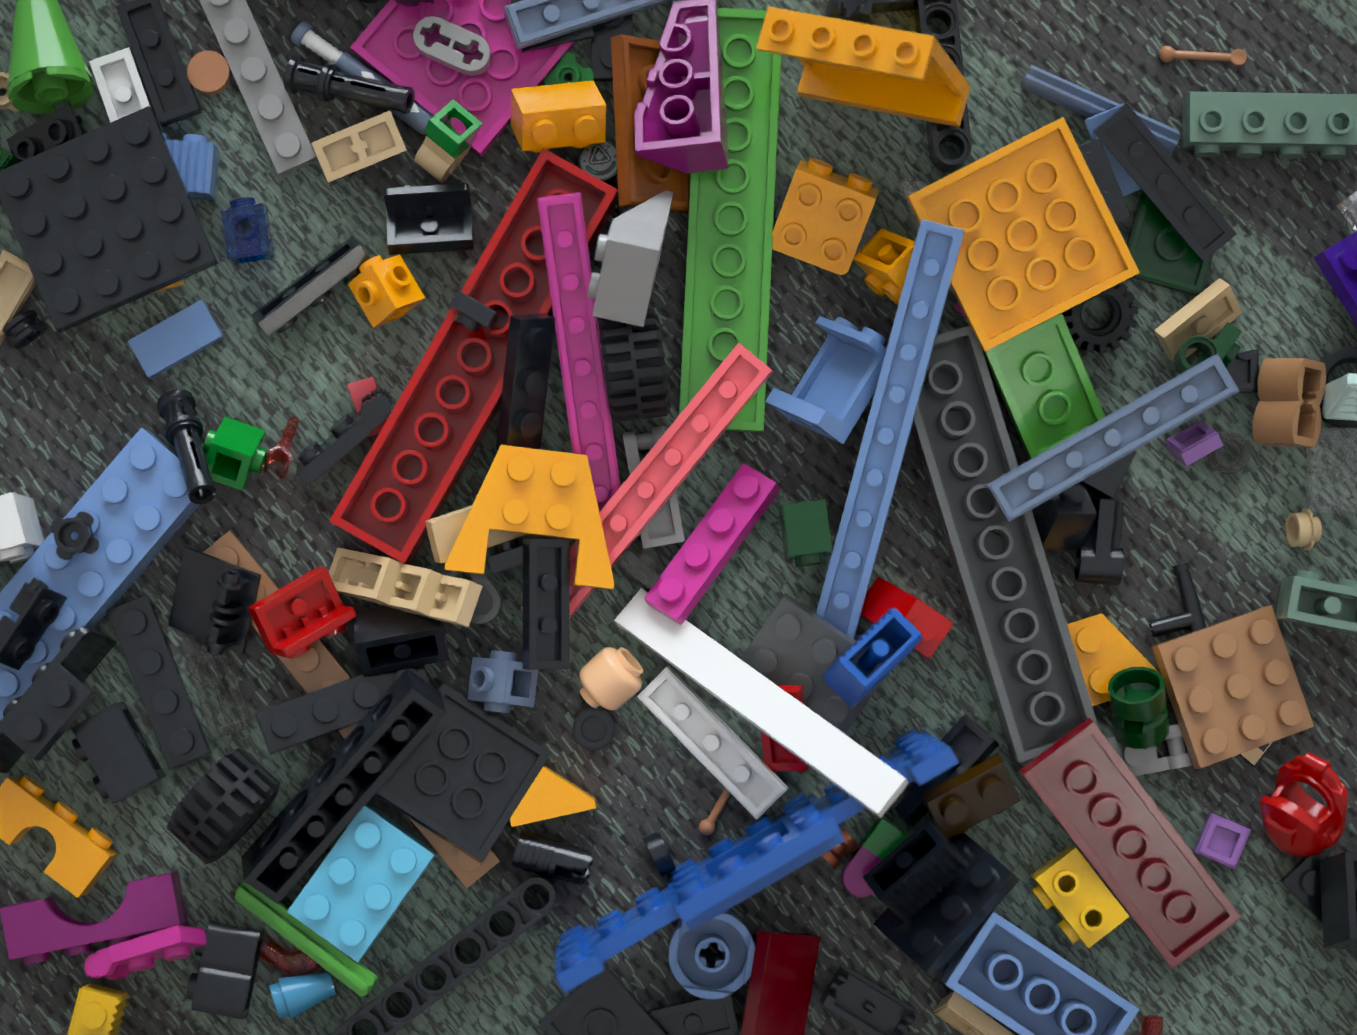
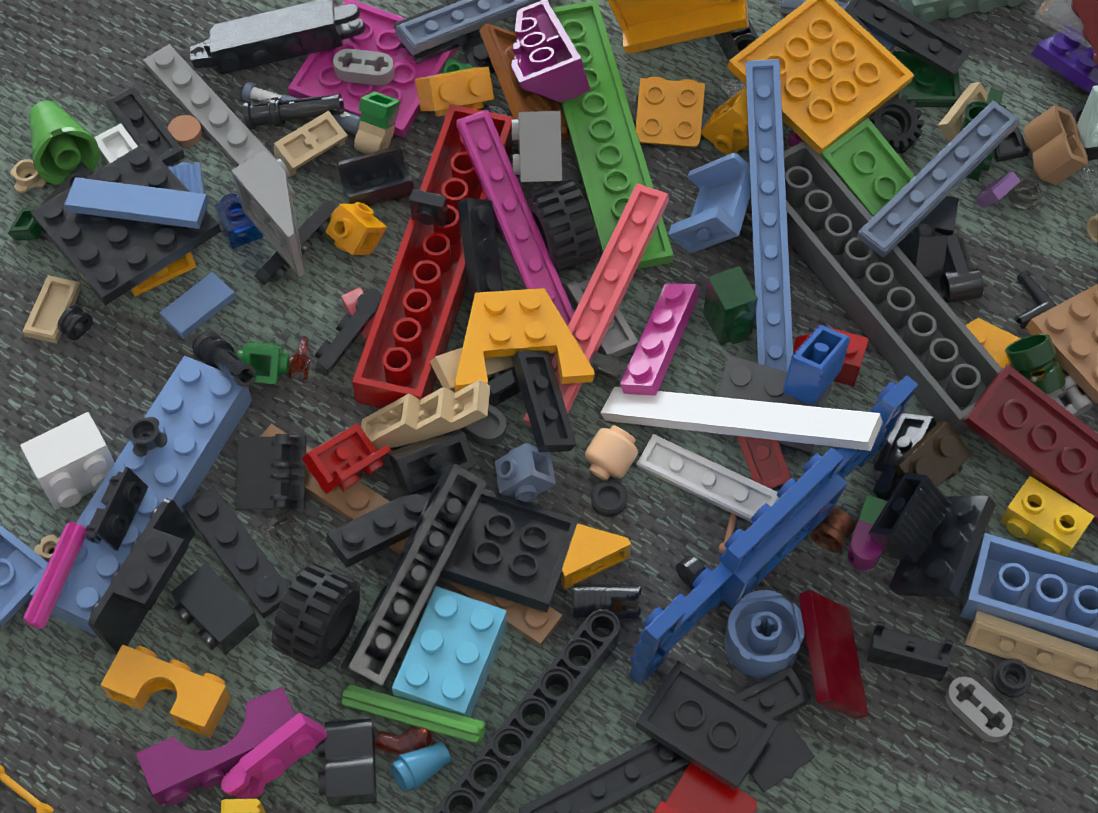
camera: 10 degrees left, 25 degrees down
(119, 210) = (136, 203): none -> medium blue tile
(286, 260) = (269, 205): none -> light grey slope

